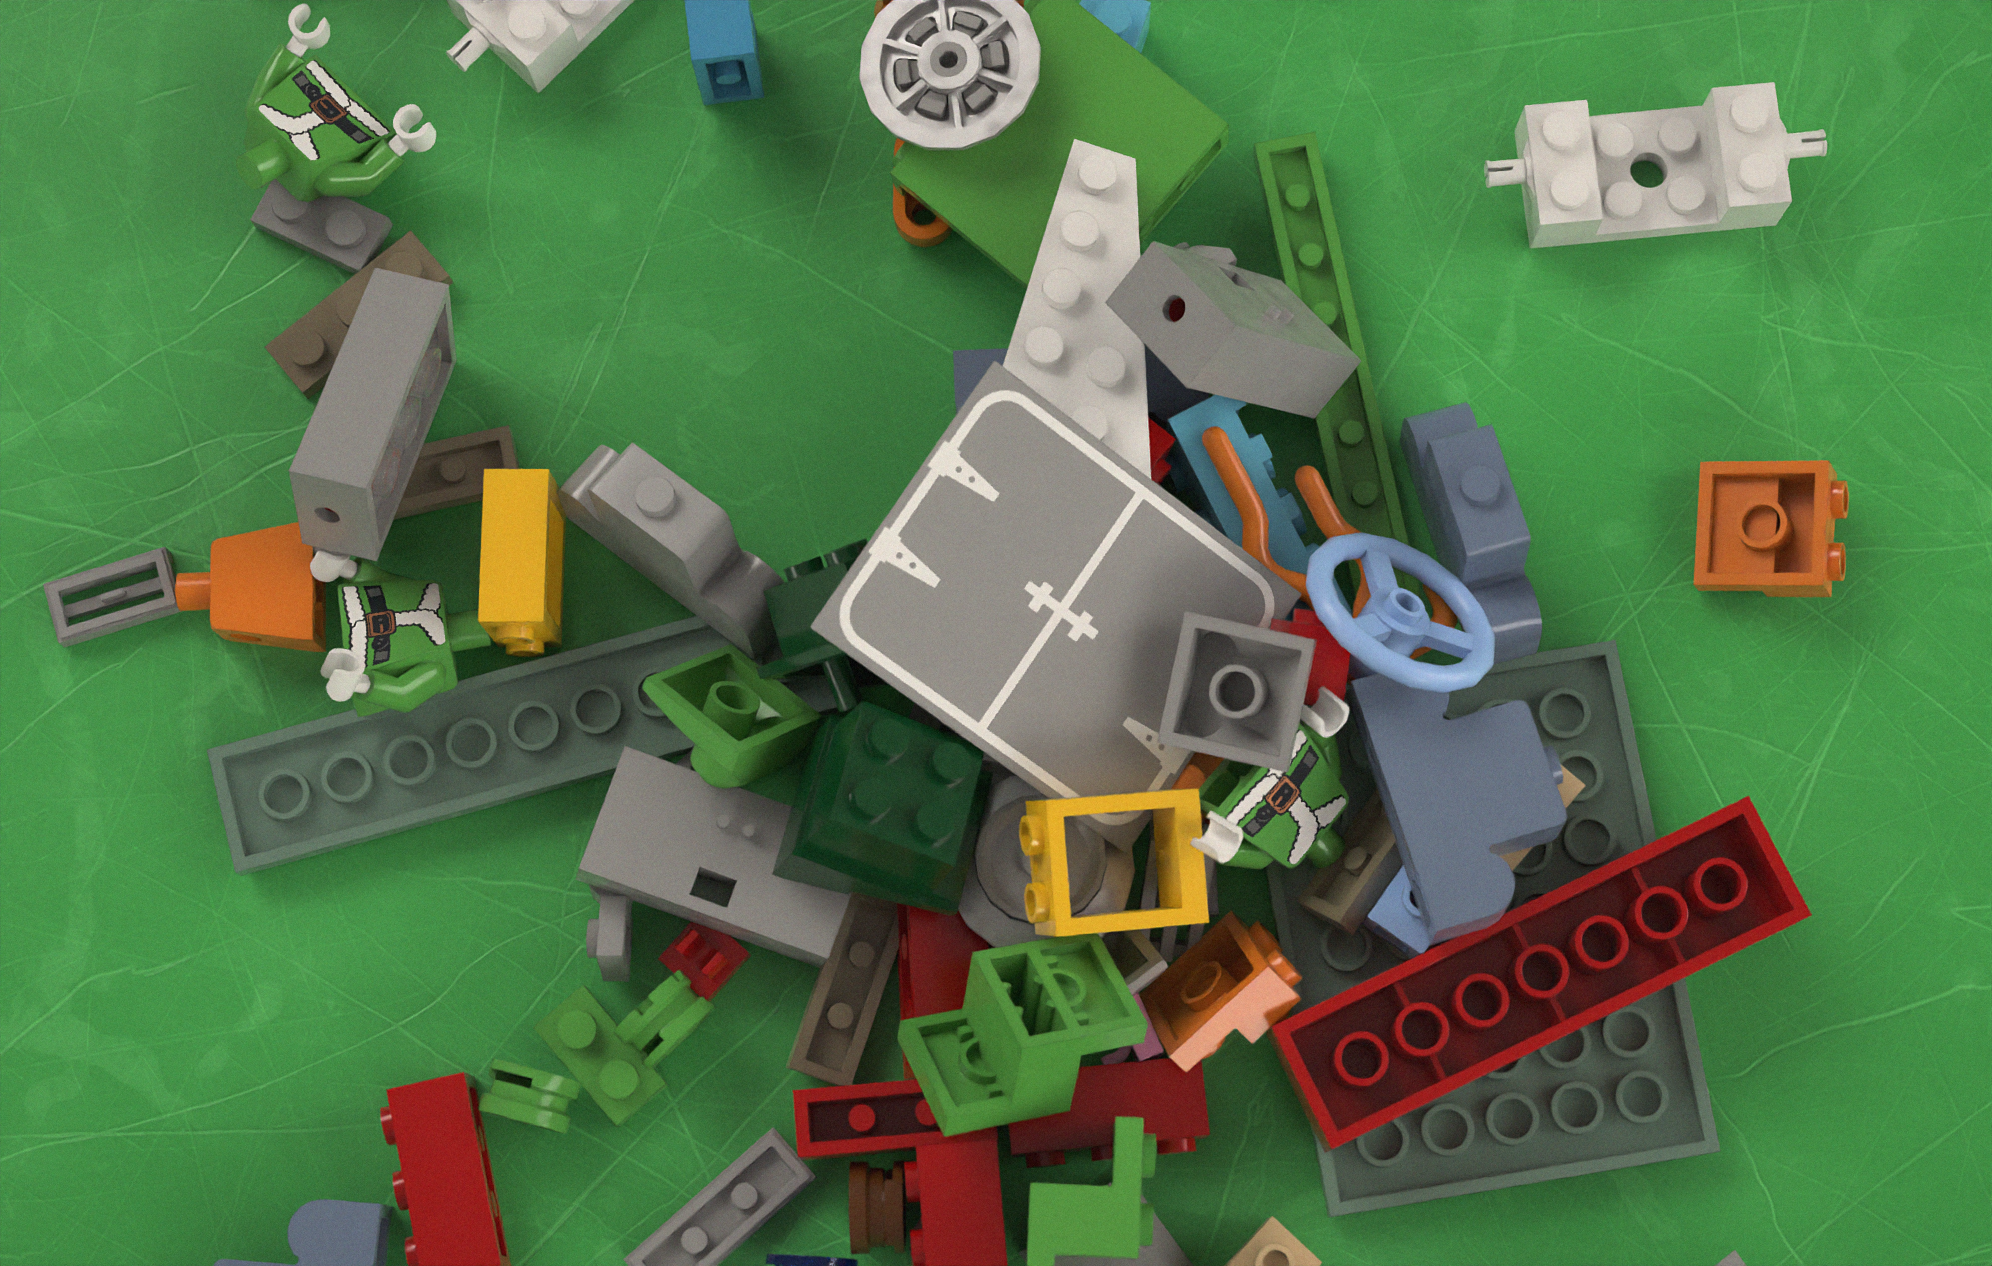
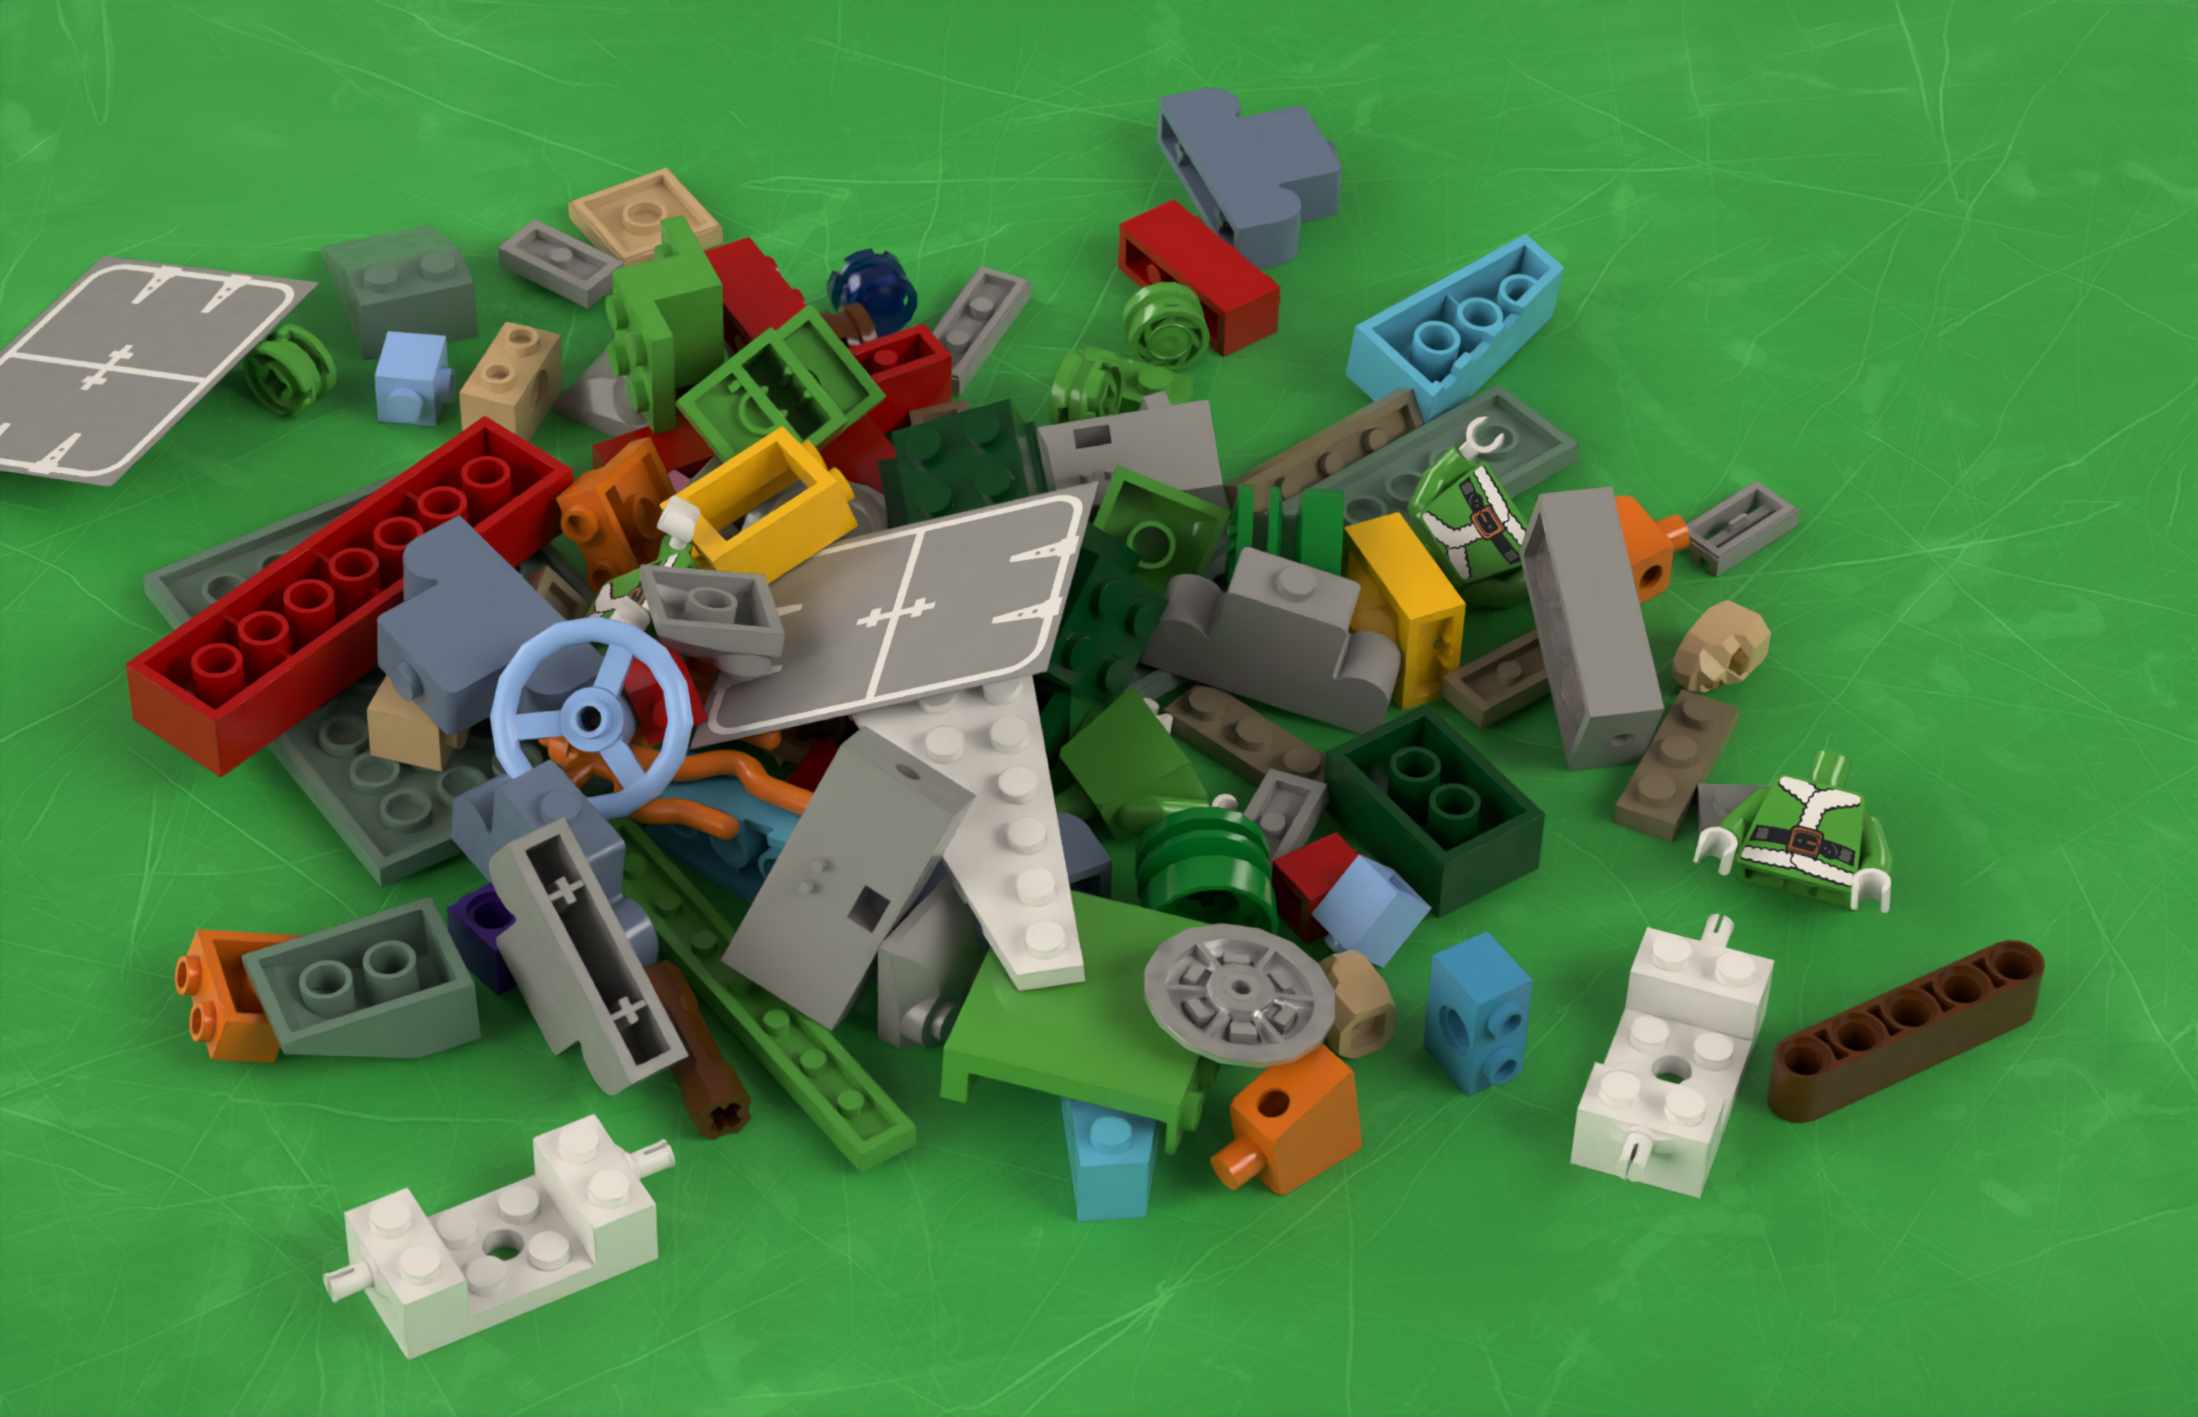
camera: 150 degrees right, 35 degrees down
(243, 419) = (1721, 648): none -> tan rock
(252, 949) = (1457, 329): none -> medium azure wedge
(448, 840) = (1331, 449): none -> dark tan plate
(594, 632) = (1308, 538): none -> green wheel
(627, 307) = (1433, 810): none -> dark green brick
(730, 479) = (1240, 736): none -> dark tan plate
(747, 212) = (1370, 911): none -> light blue brick
(766, 276) = (1305, 878): none -> red brick
(775, 363) = (1287, 810): none -> light grey plate
(815, 135) = (1363, 1005): none -> tan rock
(865, 457) = (1129, 769): none -> bright green torso
(890, 273) = (1207, 869): none -> green wheel
(1409, 281) = (705, 1080): none -> reddish brown axle
(1503, 356) = (579, 962): none -> light grey brick
(1544, 494) = (474, 926): none -> dark purple brick
(1687, 471) = (369, 987): none -> sand green slope

